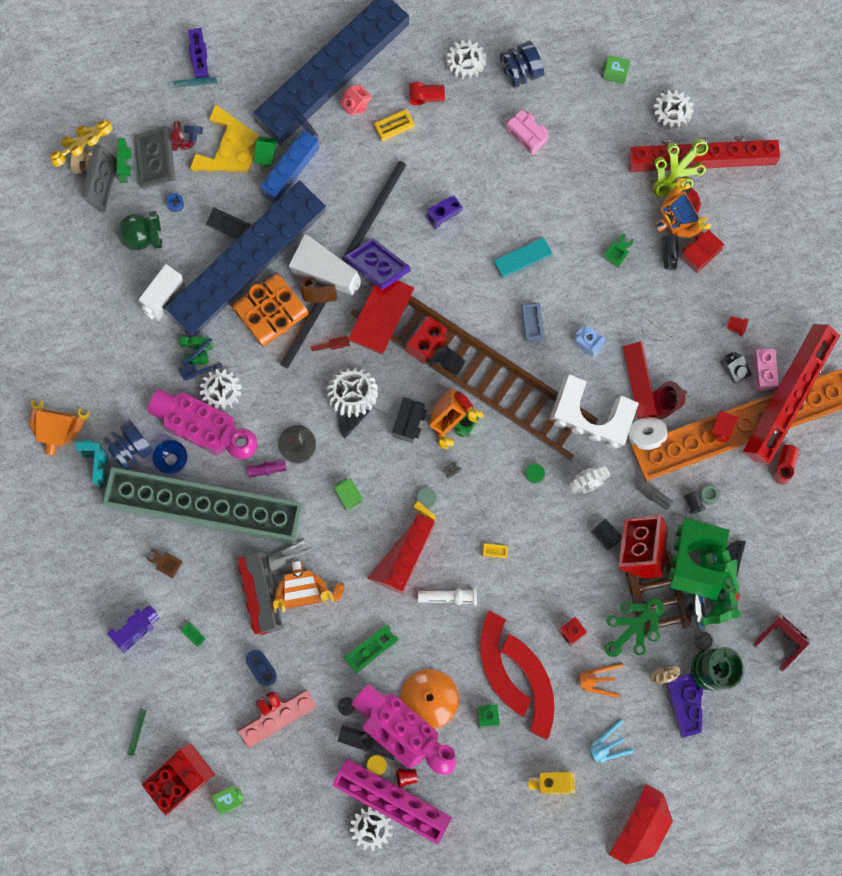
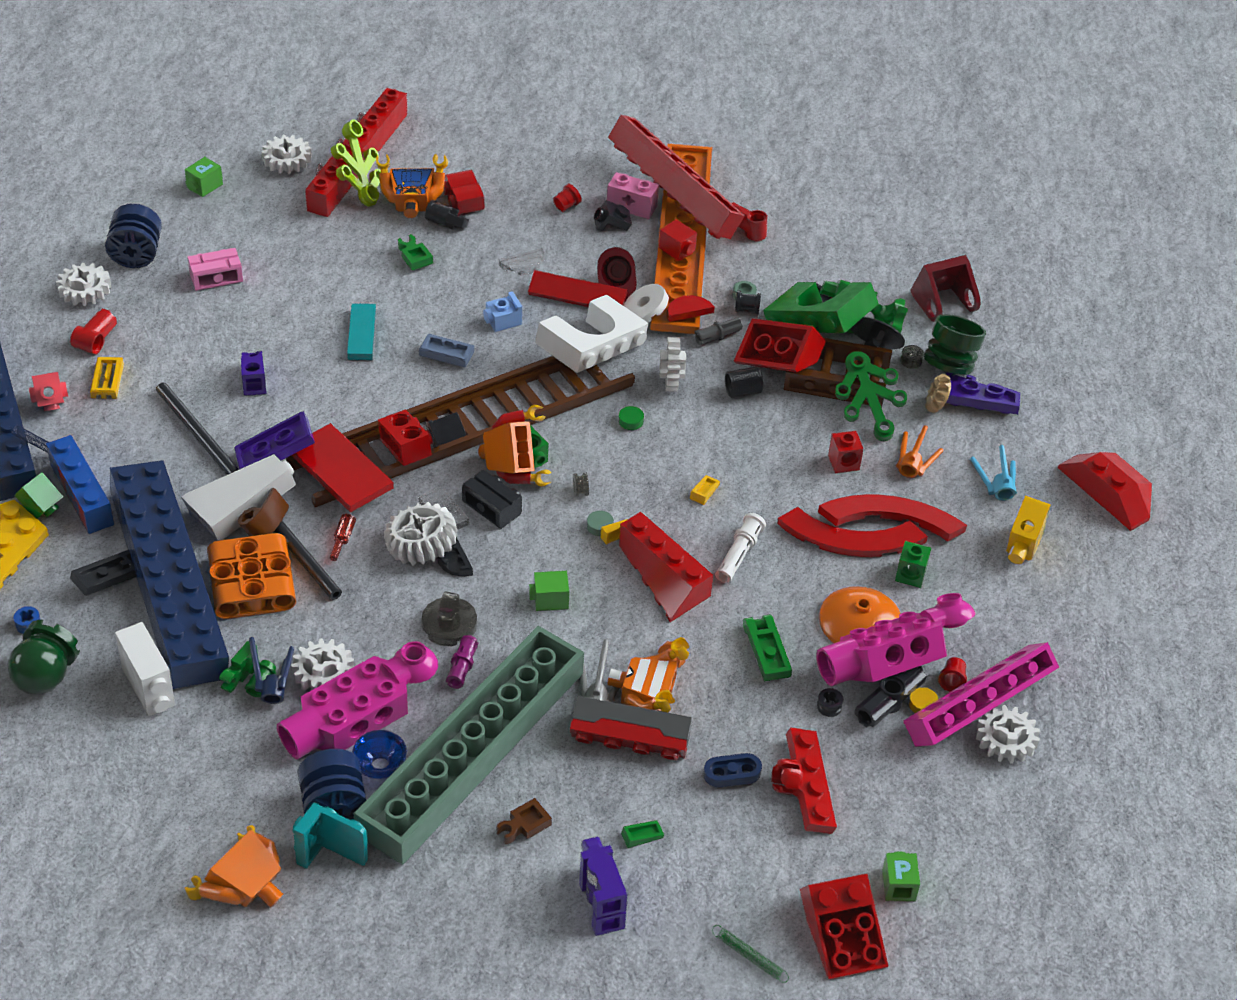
camera: 65 degrees left, 30 degrees down
(658, 464) = (689, 307): none -> red tile

